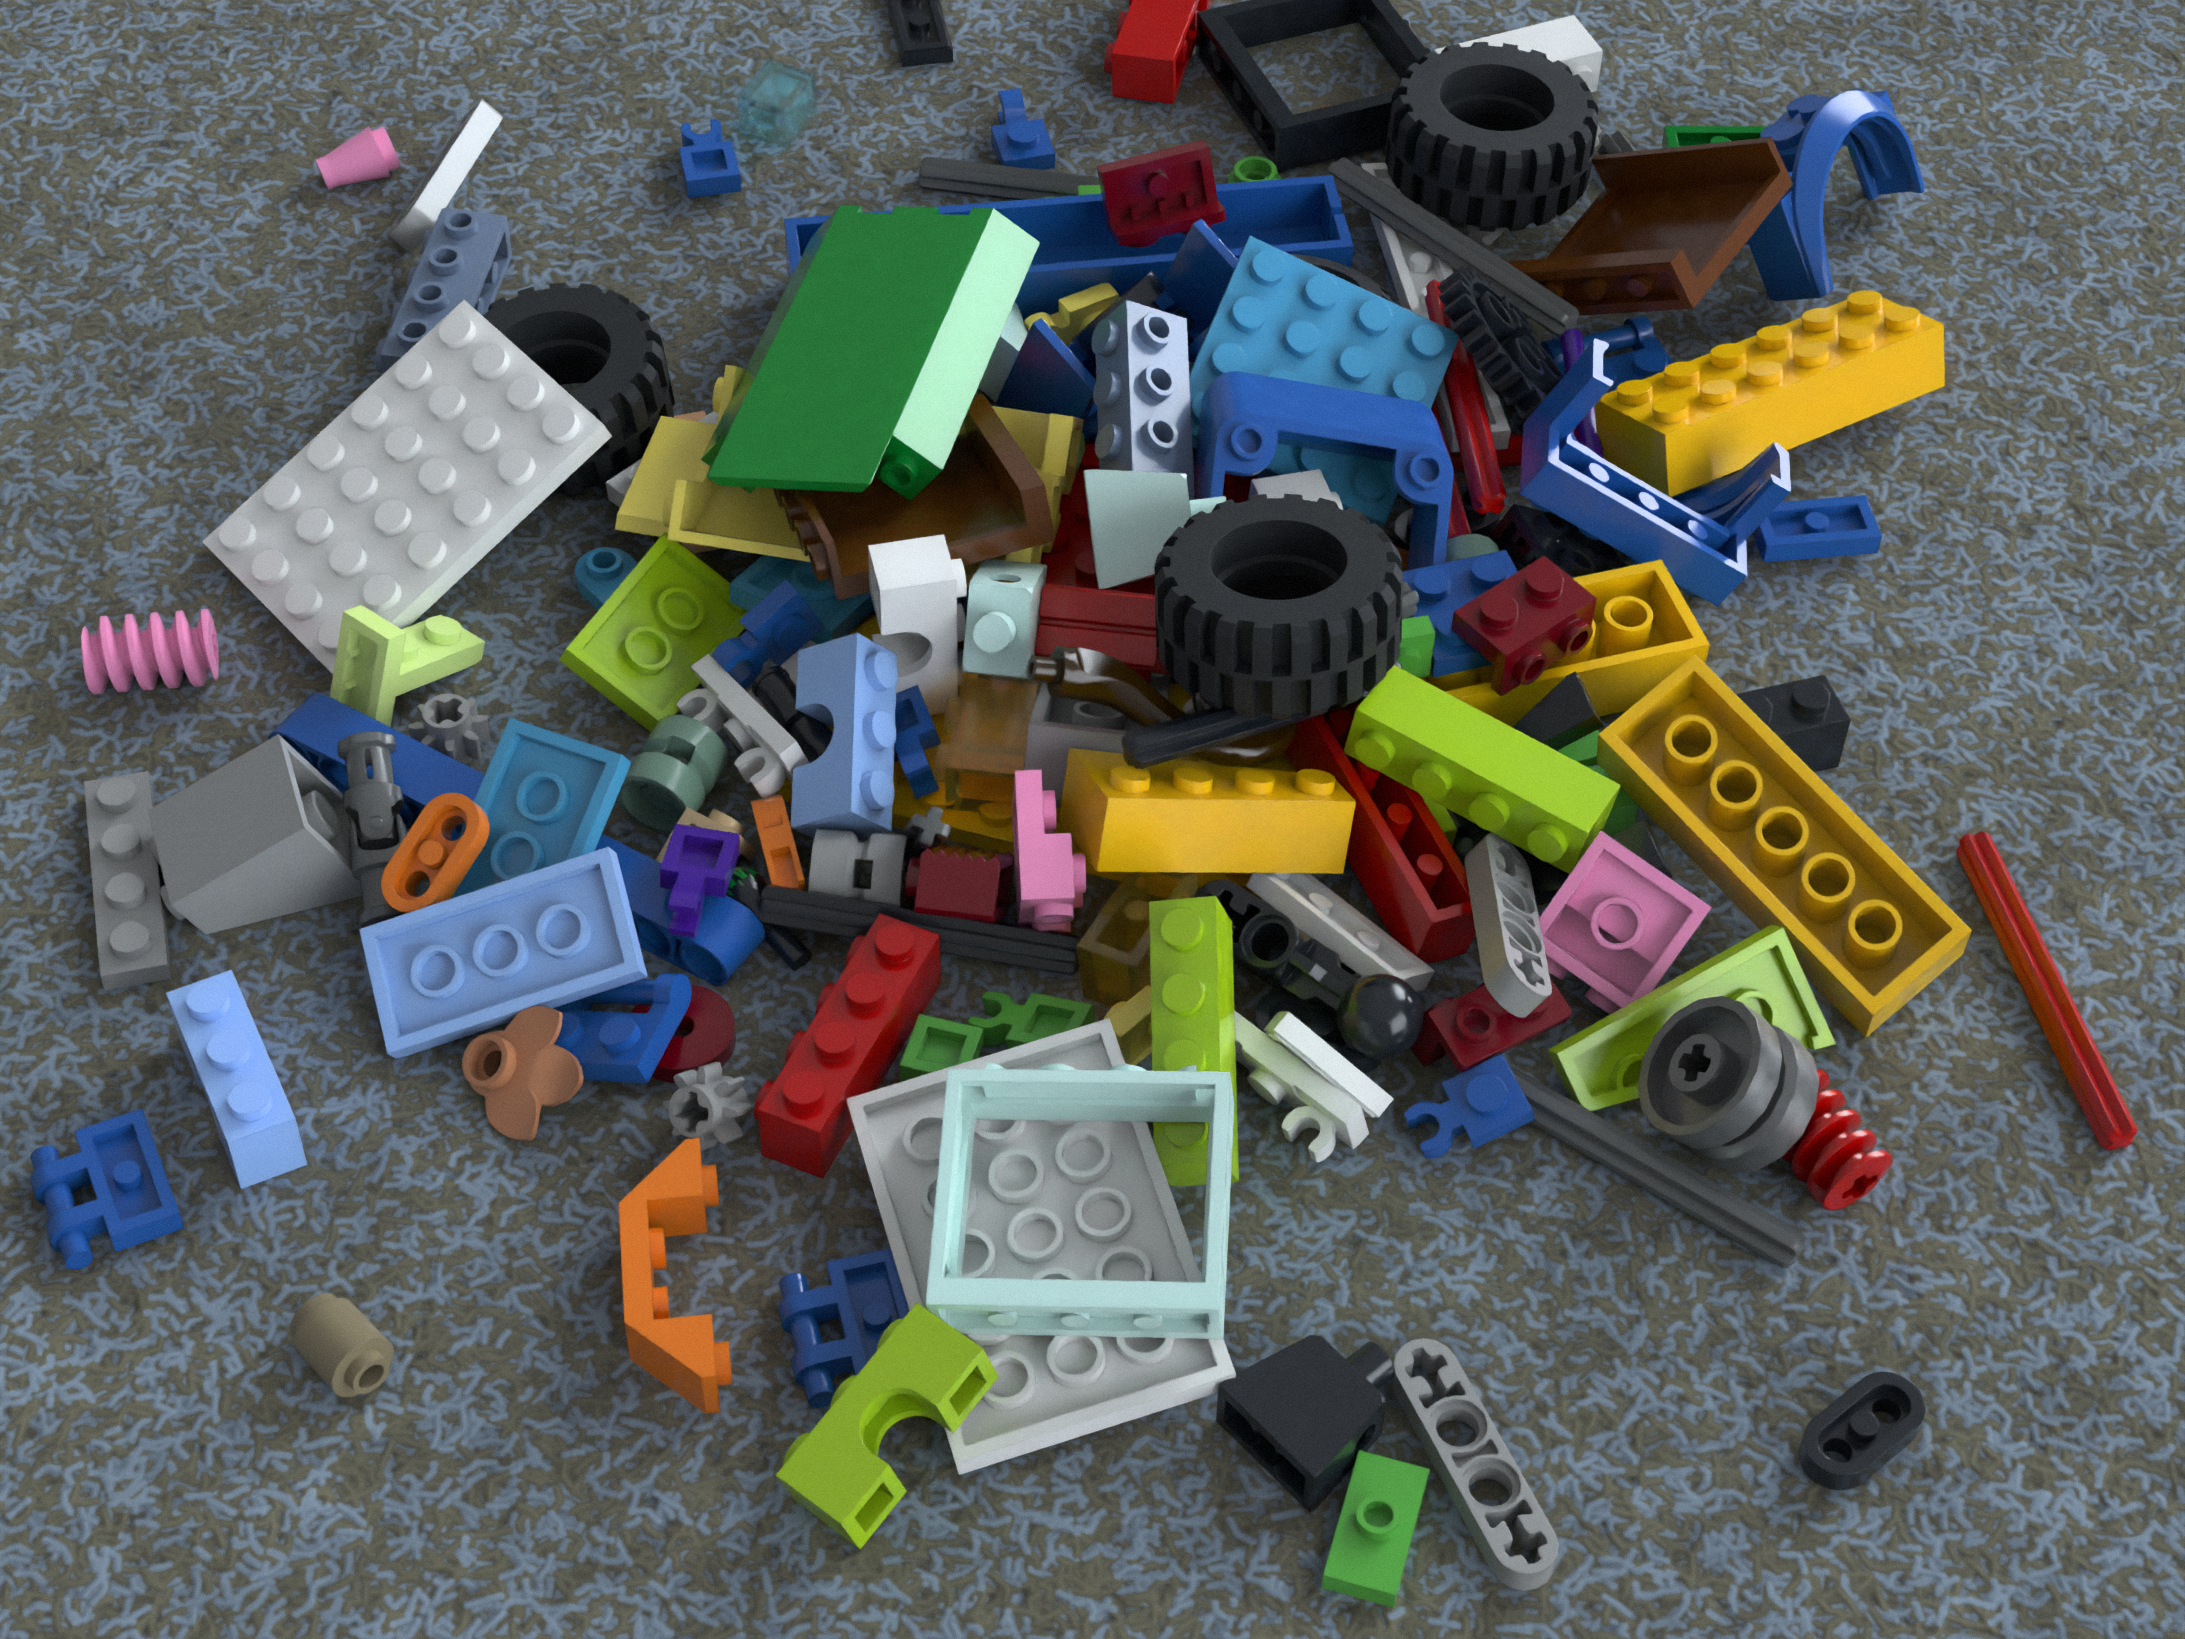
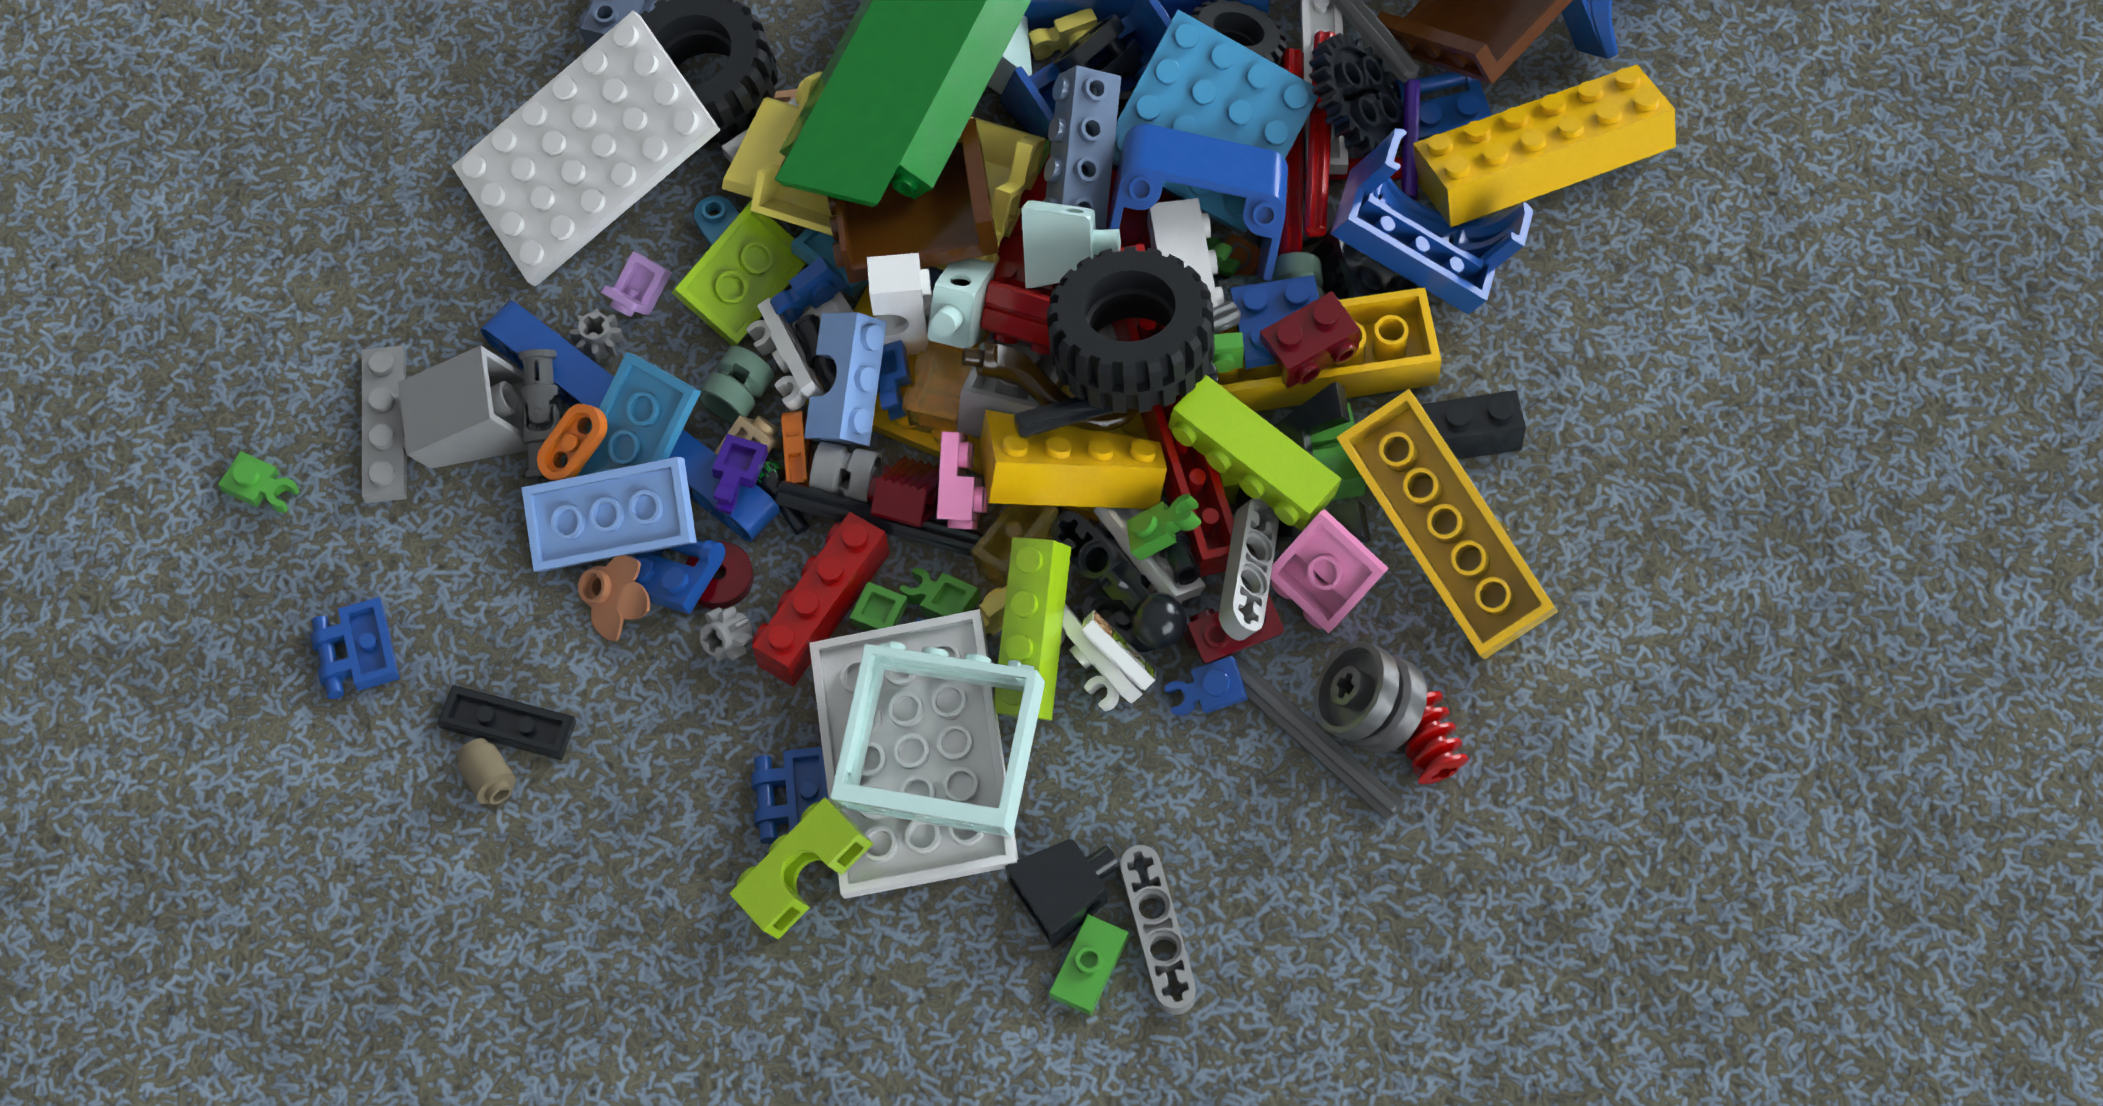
camera: 15 degrees right, 15 degrees up
(150, 653) = (410, 257): bright pink piece -> none
(237, 1079) = (437, 583): light blue arch -> none
(368, 1272) = (507, 722): none -> black tile
(383, 661) = (557, 284): yellowish green bracket -> none
(504, 664) = (637, 286): none -> lavender bracket
(674, 1349) = (692, 697): orange slope -> none
(926, 830) = (888, 454): dark grey axle -> none
(1357, 883) = (1156, 526): none -> bright green plate
(1380, 913) = (1181, 559): none -> black pin
(1761, 971) = (1402, 626): lime wing -> none
(1818, 529) = (1555, 258): blue plate -> none
(1857, 1433) = (1401, 938): black plate -> none
(2046, 992) = (1612, 638): red axle -> none

